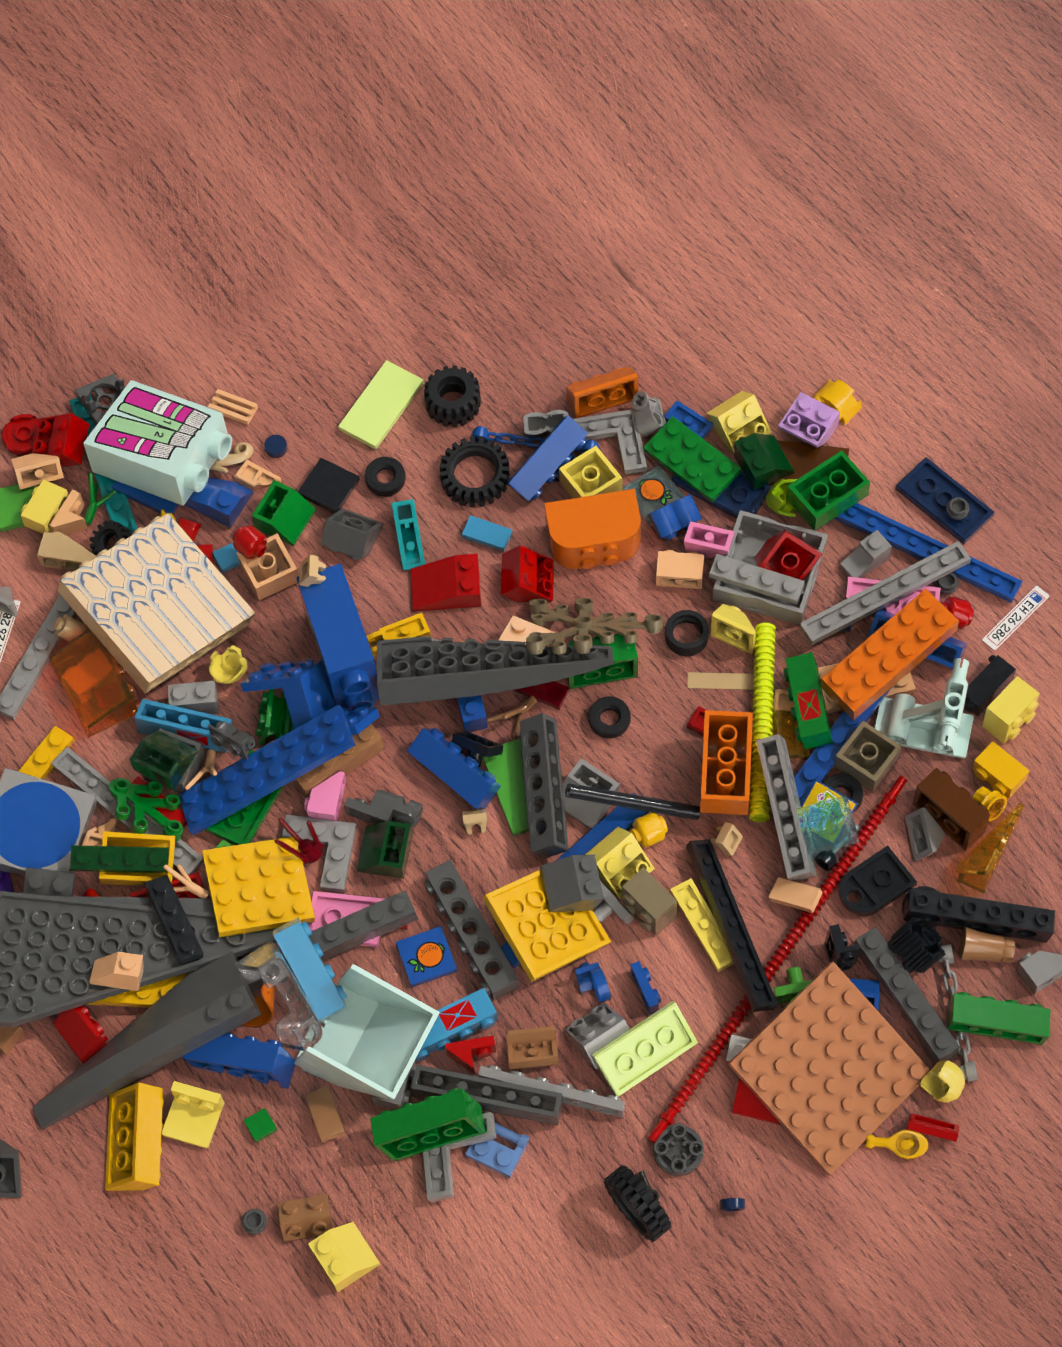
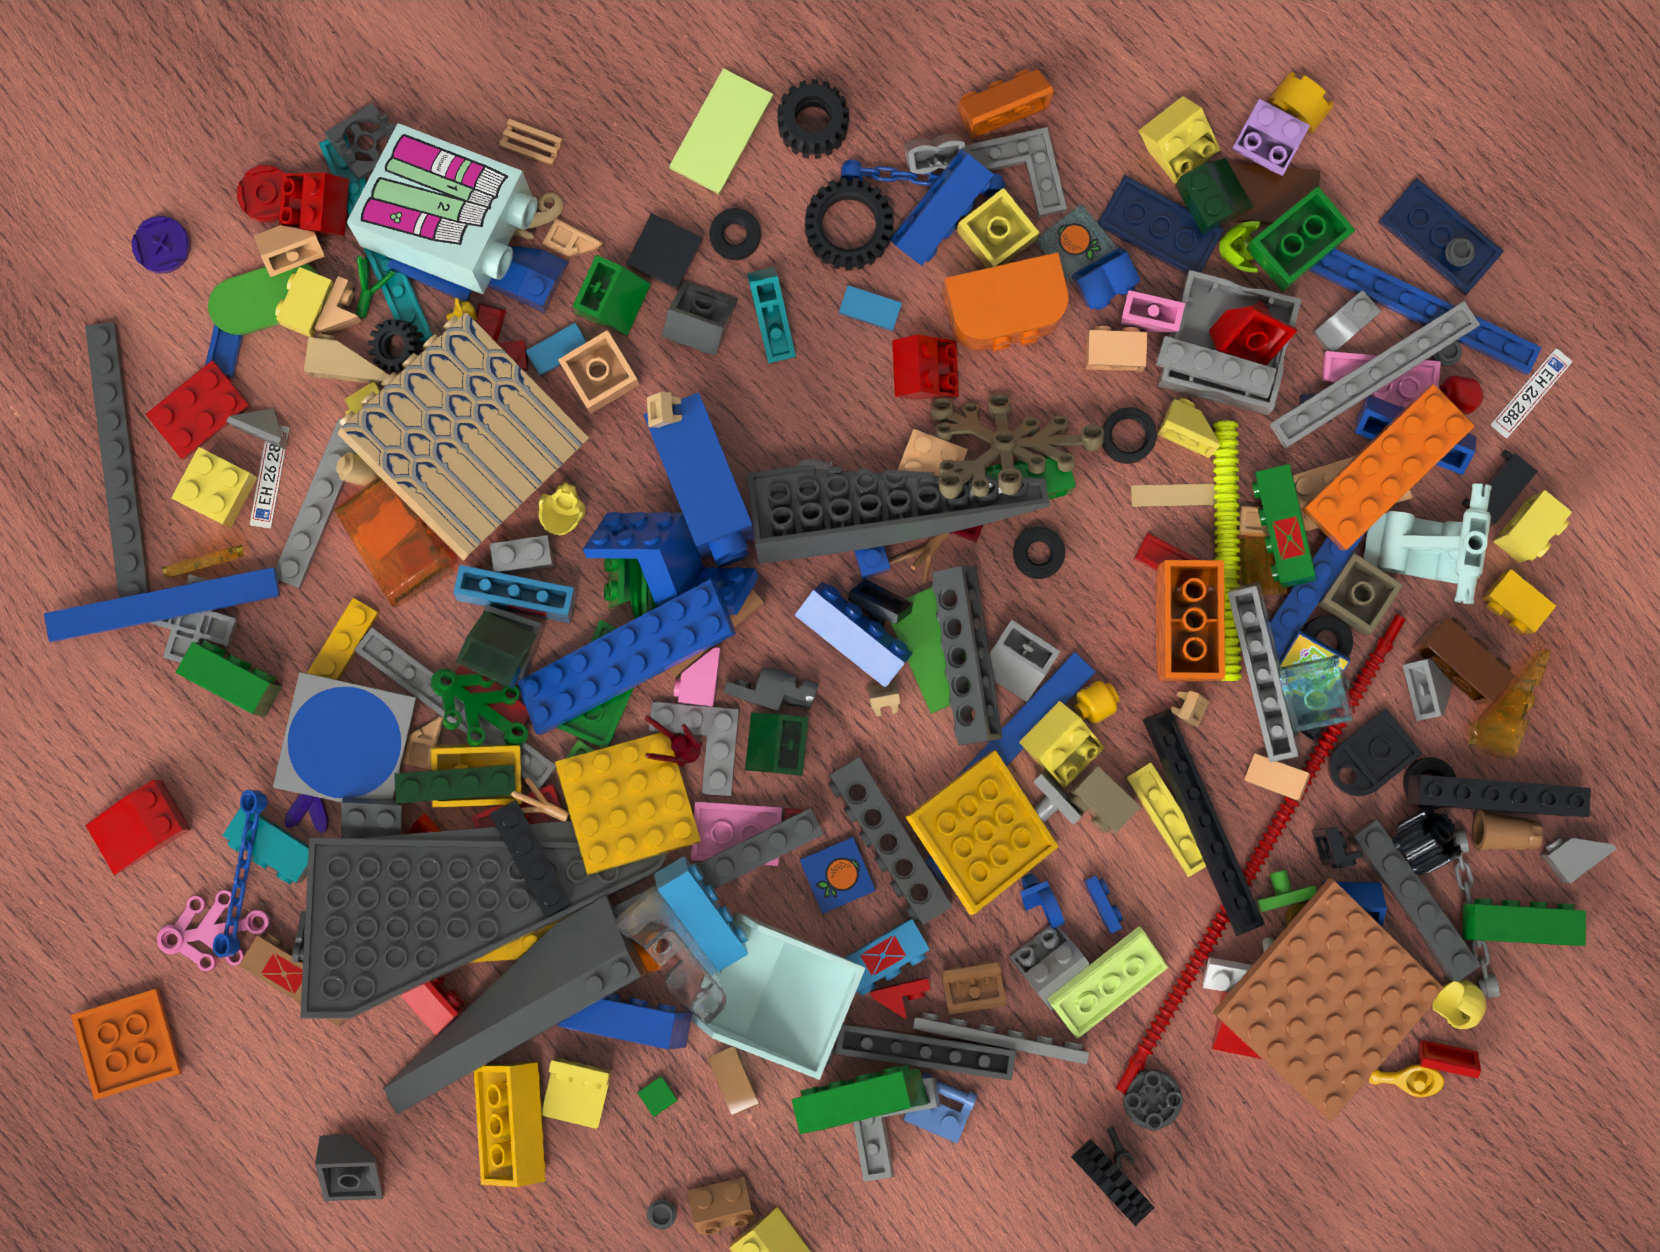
camera: 10 degrees left, 20 degrees up
(118, 971) = (470, 940): light nougat slope -> none
(209, 767) = (551, 644): light nougat plant -> none
(224, 735) = (586, 628): dark grey hinge -> none
(250, 542) = (574, 348): red head -> none
(276, 446) = (591, 196): dark blue tile -> none
(407, 628) = (772, 452): yellow hinge -> none
(447, 584) = (824, 382): red slope -> none
(572, 884) = (1011, 786): dark grey slope -> none
(632, 801) = (1077, 673): black axle -> none
(647, 413) = (1066, 136): light grey piece -> none
(689, 418) = (1115, 141): blue plate -> none
(692, 459) = (1124, 196): green plate -> none
(732, 1204) = (1219, 1164): dark blue tile -> none
(992, 801) = (1506, 645): yellow piece -> none

